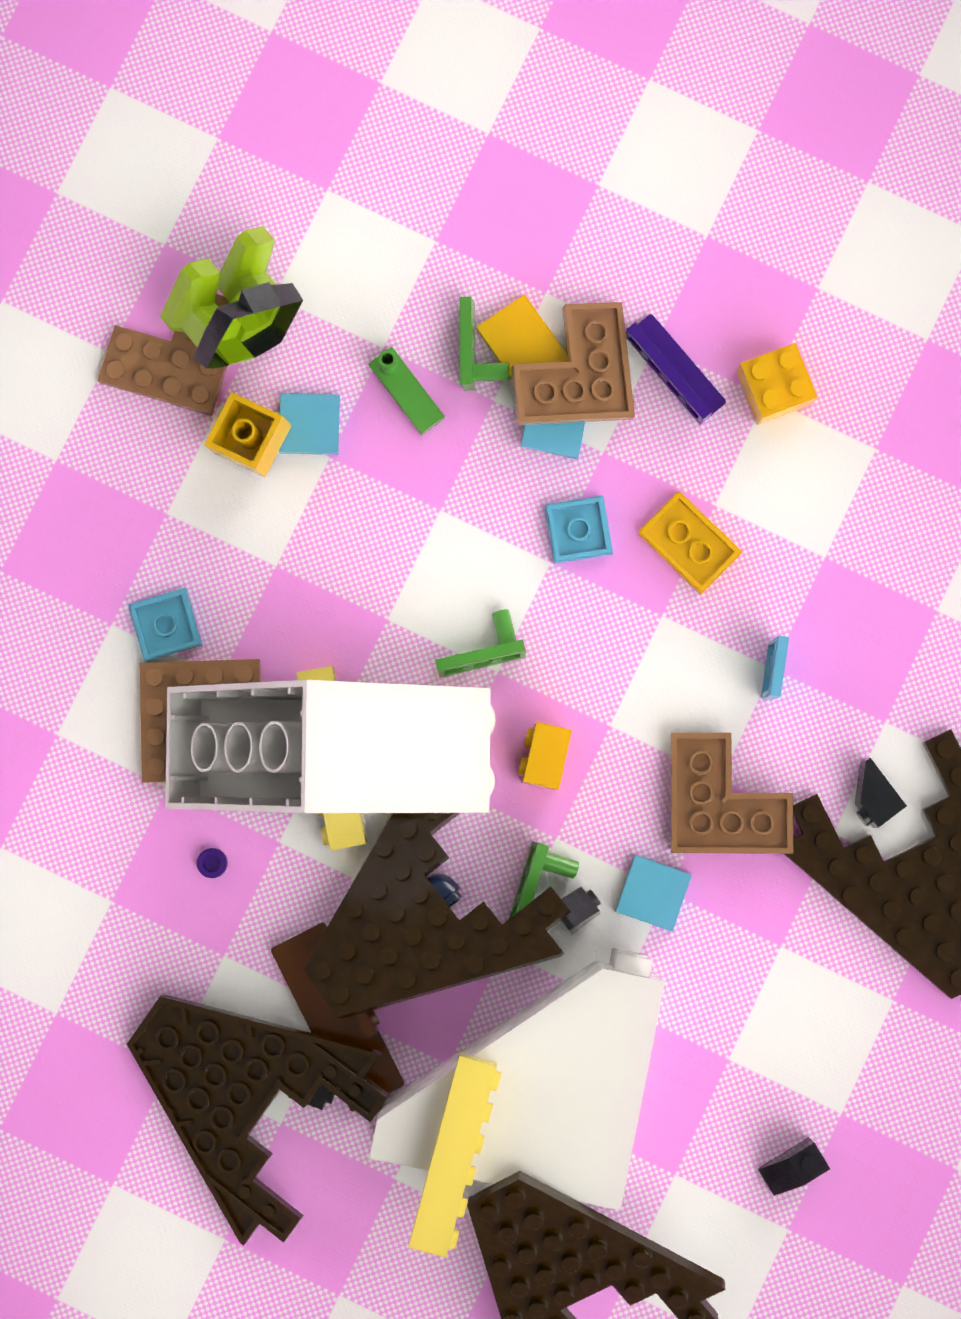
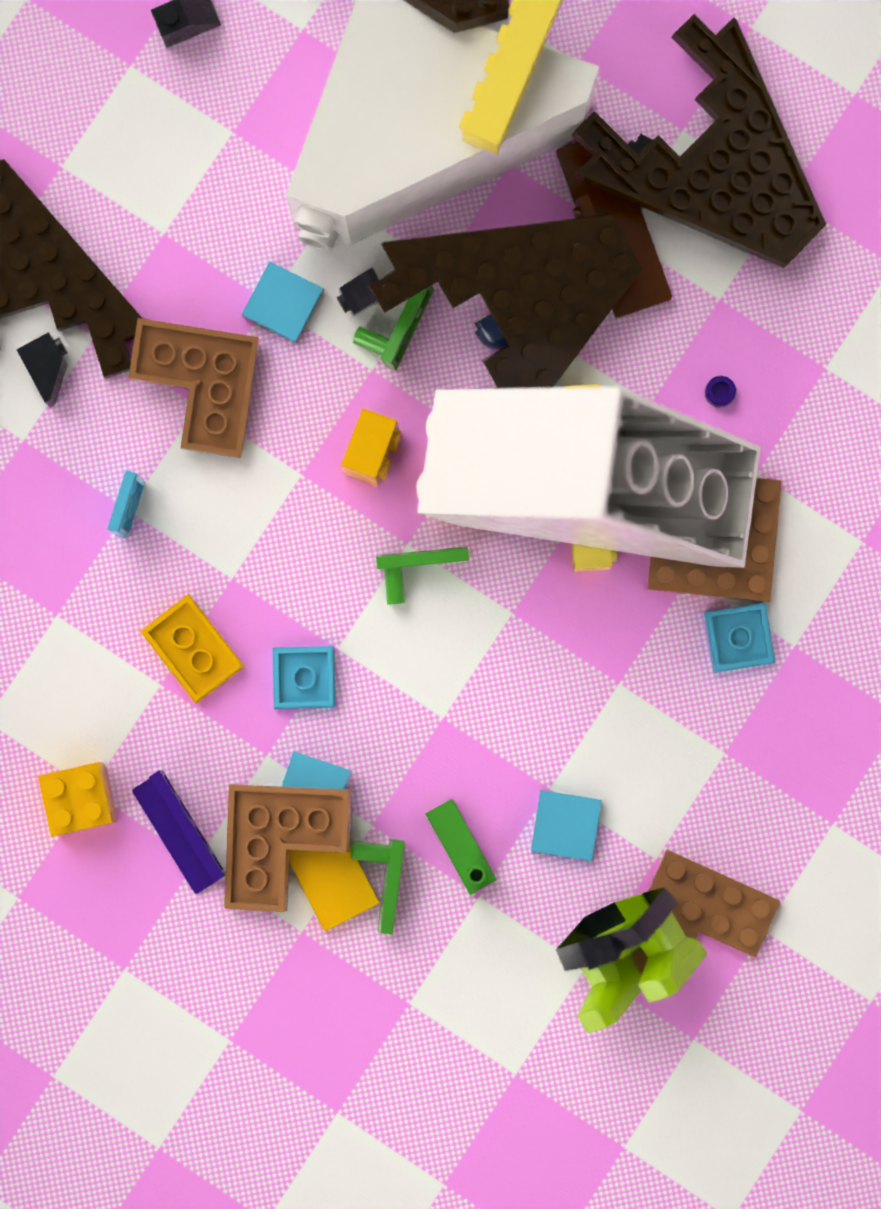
camera: 165 degrees left, 0 degrees up
(248, 434) = (631, 818): yellow brick -> none

